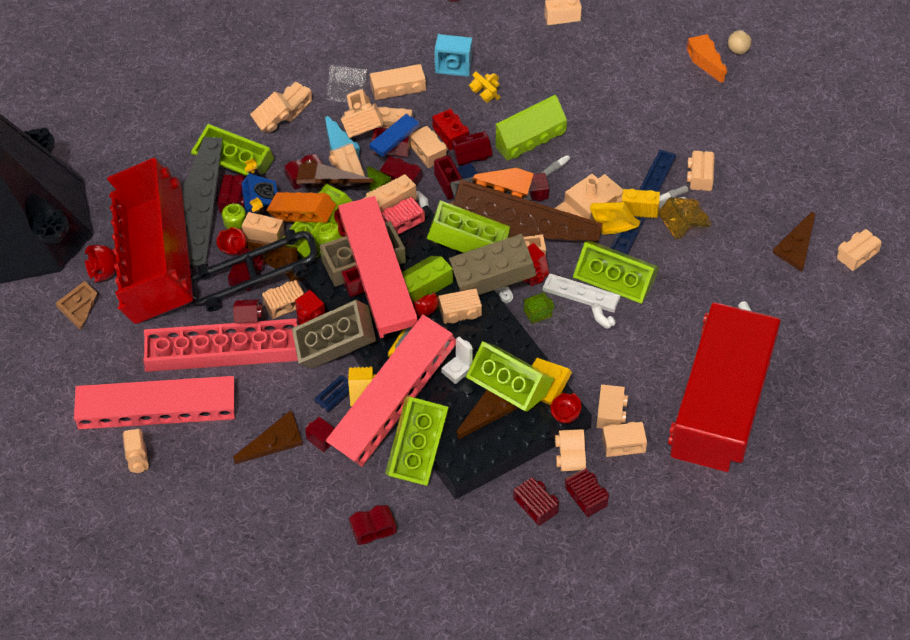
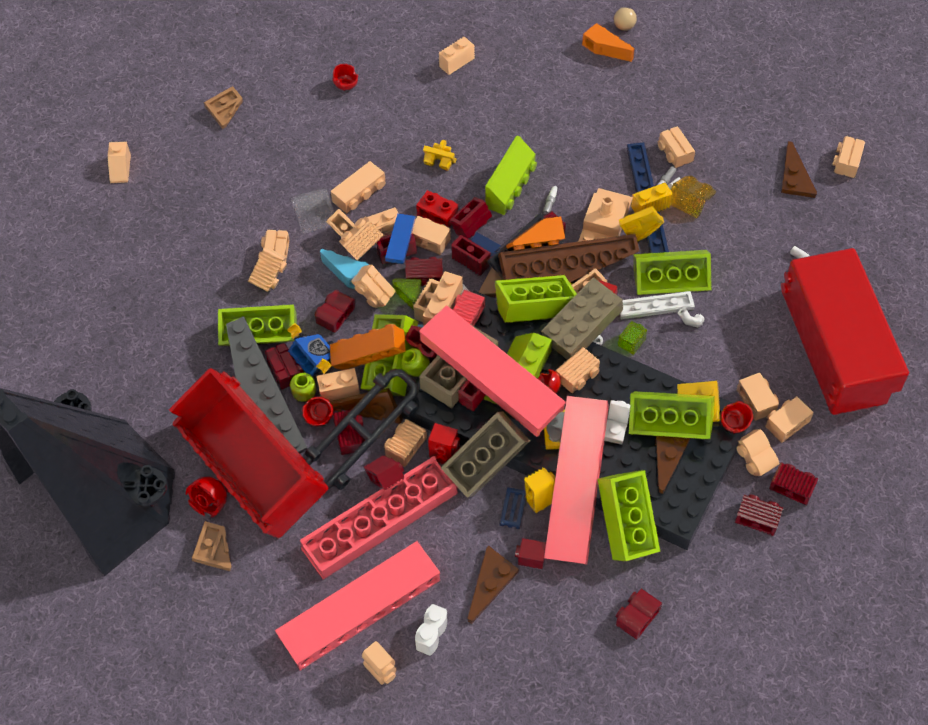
camera: 30 degrees left, 5 degrees up
(198, 448) = (434, 626): none -> white brick
(318, 175) = (362, 308): reddish brown wedge -> none
(453, 55) = (393, 139): medium azure brick -> none

